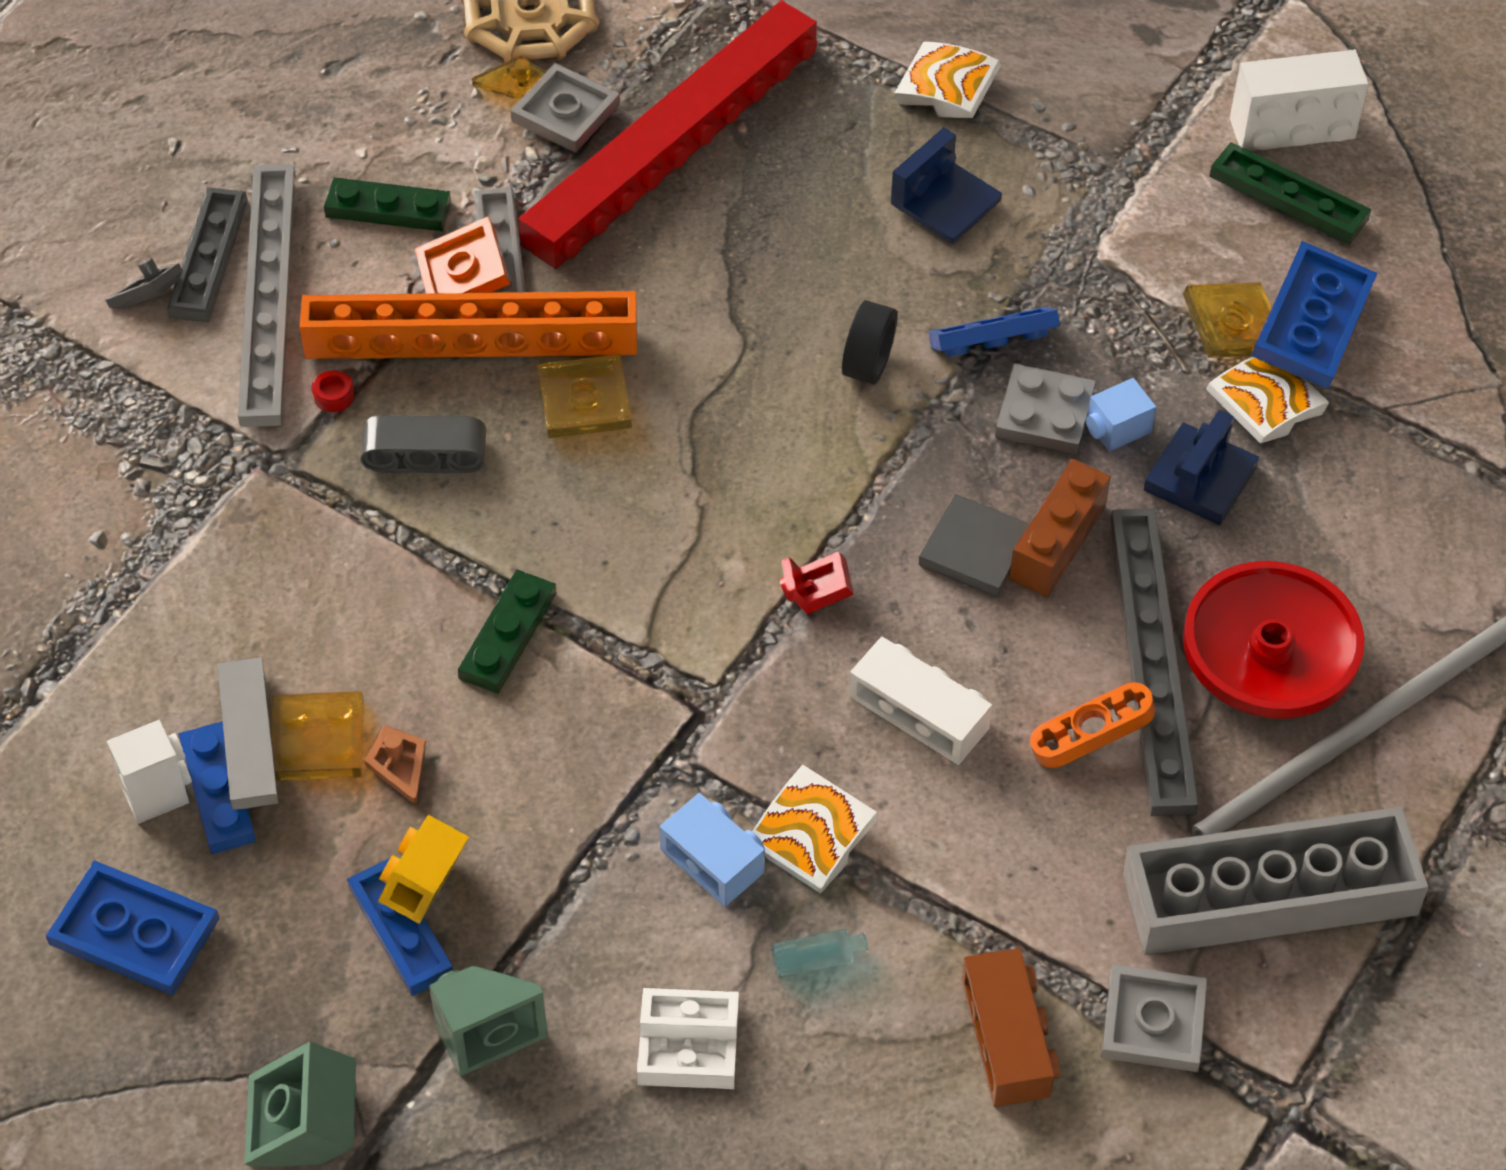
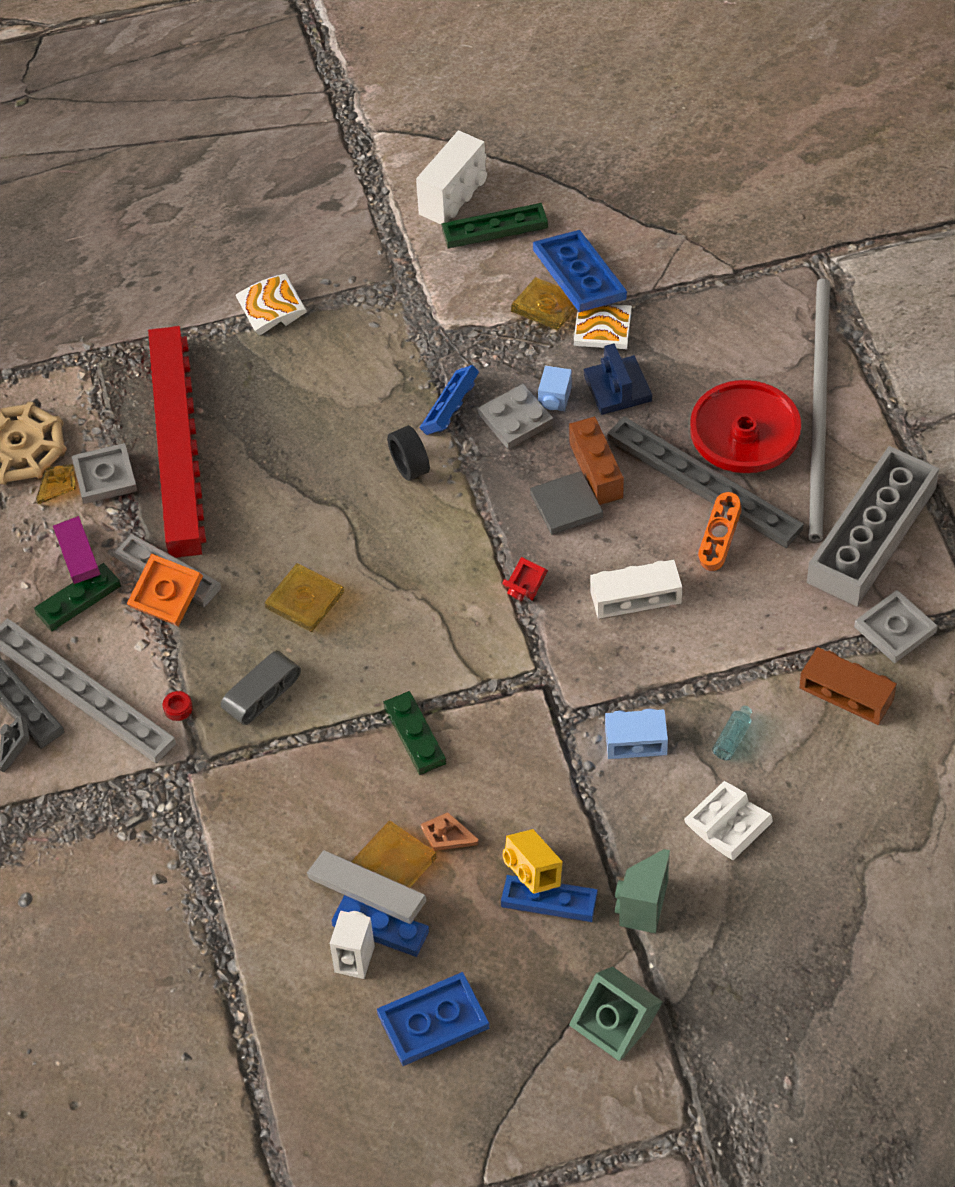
camera: 45 degrees left, 0 degrees up
(439, 156) = (76, 550): none -> magenta tile
(469, 325) = (208, 613): orange brick -> none
(813, 828) = (664, 683): slope -> none
(940, 191) = (343, 358): dark blue bracket -> none

